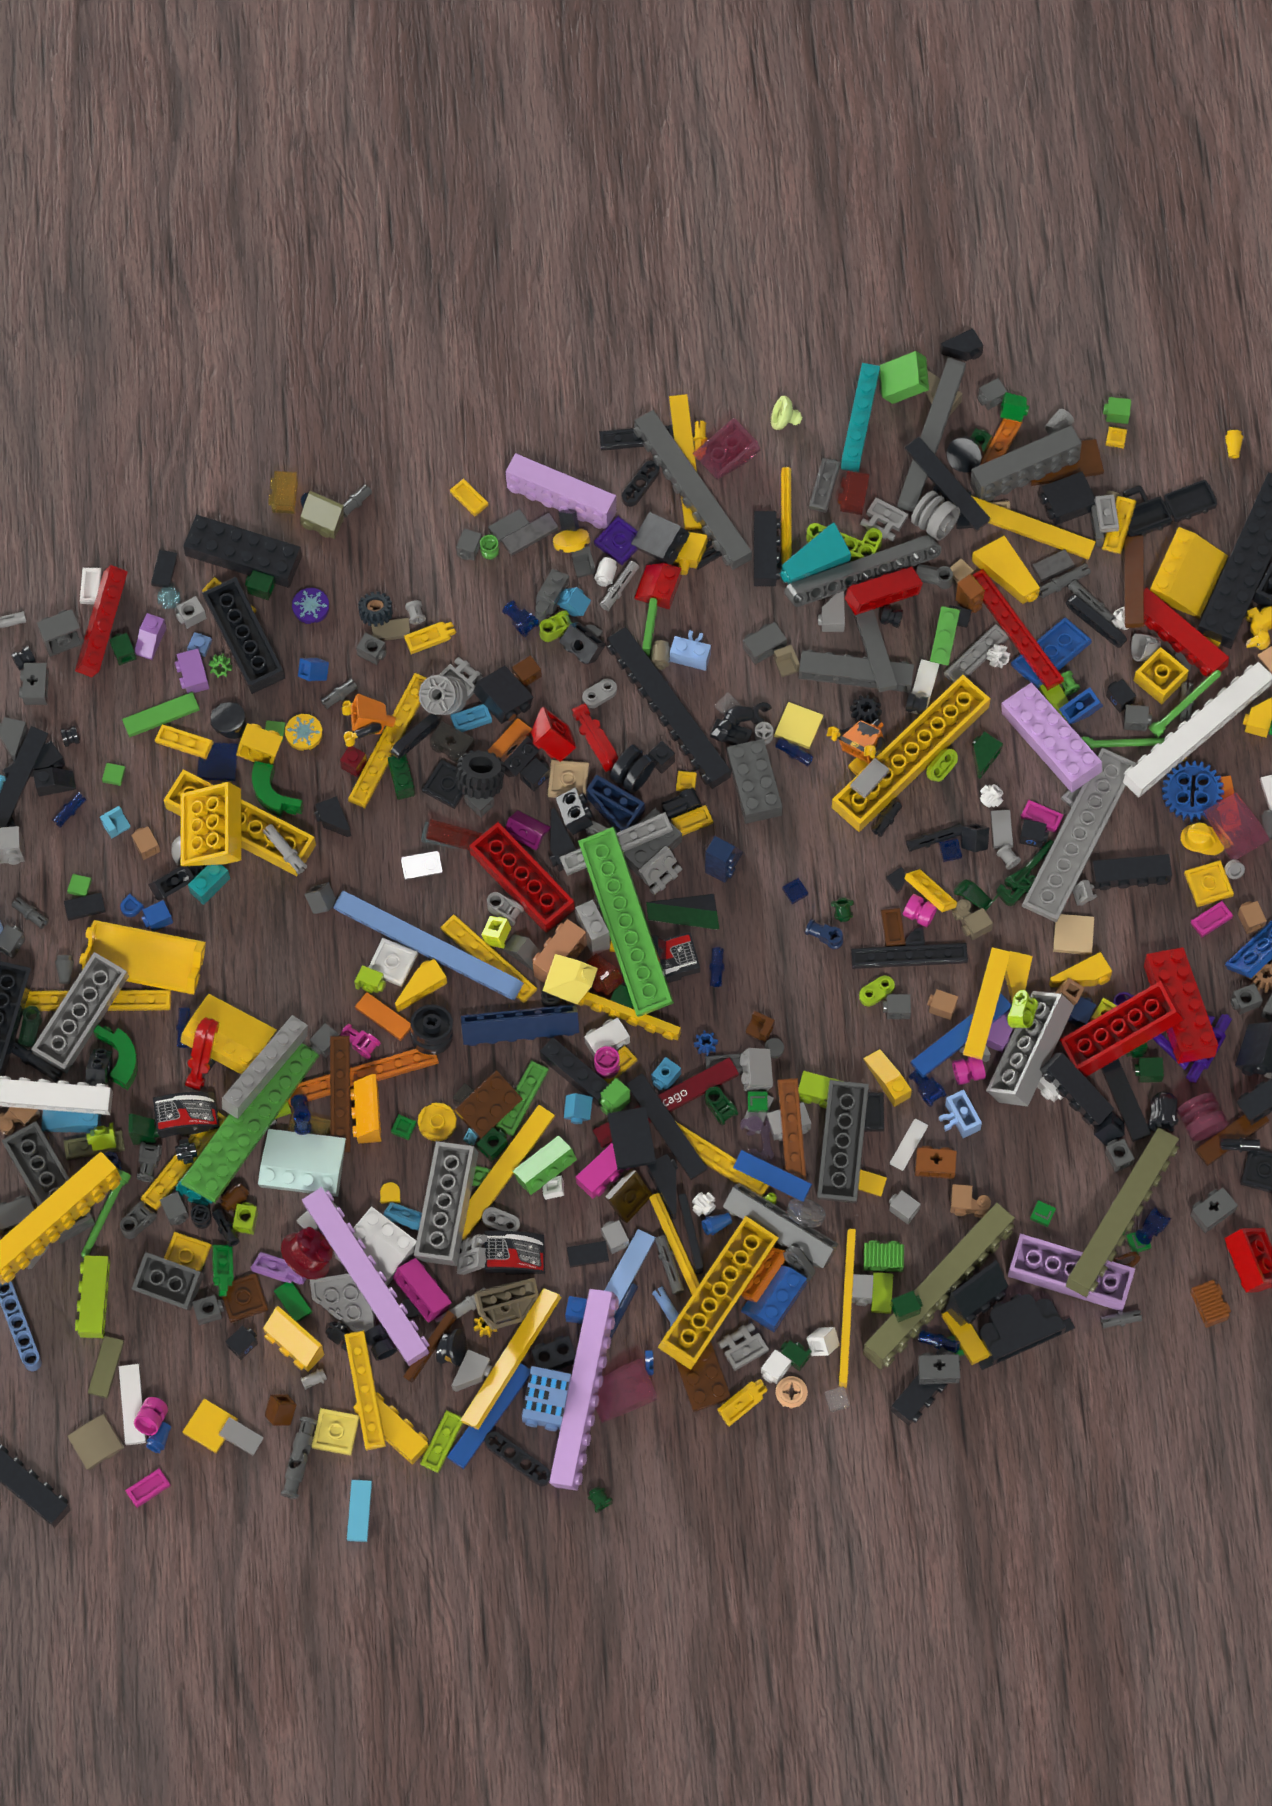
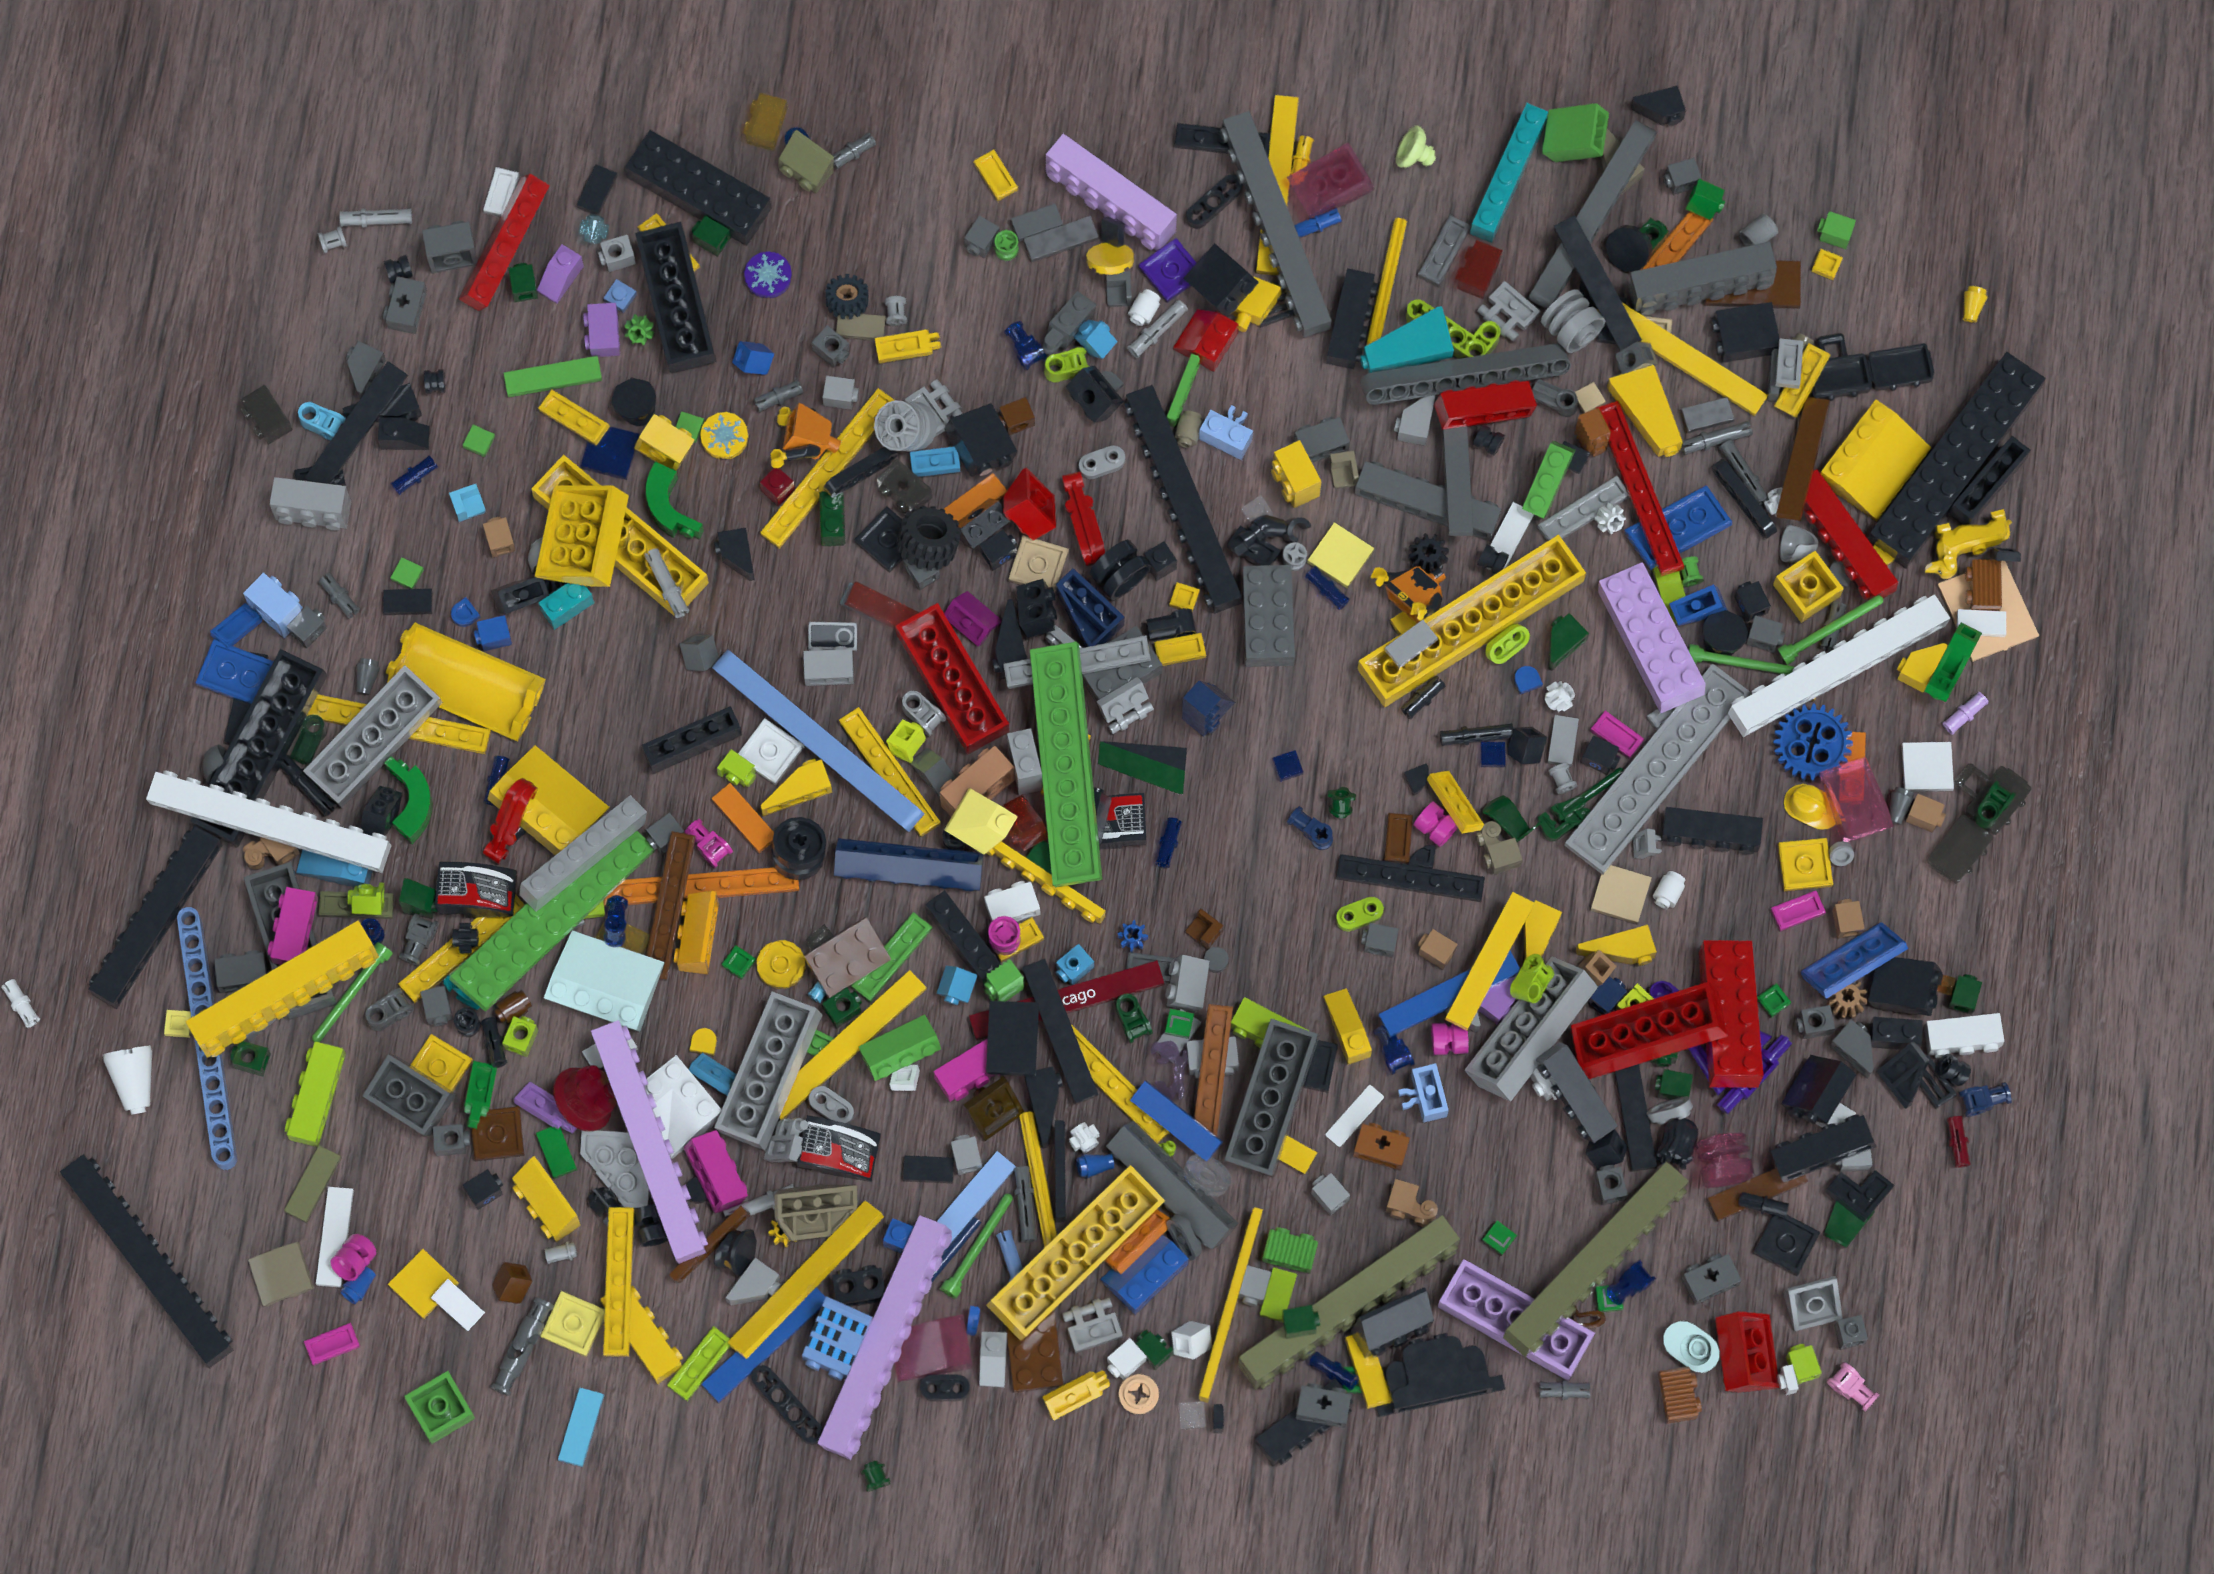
camera: 10 degrees right, 5 degrees up
(42, 1285) = (258, 1065): none -> dark green brick
(49, 1167) = (293, 925): none -> dark pink brick
(244, 1518) = (439, 1407): none -> bright green brick
(330, 964) = (691, 740): none -> black brick
(386, 681) = (840, 392): none -> light grey brick
(423, 888) = (828, 666): none -> light grey brick
(627, 1339) = (953, 1285): none -> bright green piece
(638, 1417) = (945, 1387): none -> black plate
(671, 1389) = (993, 1359): none -> light grey slope
(725, 482) = (1318, 223): none -> blue axle
(751, 671) = (1296, 474): none -> yellow brick
(857, 1397) = (1218, 1418): none -> black tile
(963, 788) = (1527, 679): none -> blue tile
(992, 527) = (1640, 352): none -> dark grey brick
(1105, 723) = (1724, 633): none -> black hat
(1110, 923) = (1669, 890): none -> white brick
(1147, 1090) = (1670, 1109): none -> light grey plate
(1210, 990) = (1773, 1000): none -> green tile
(1211, 1263) = (1691, 1346): none -> light aqua piece

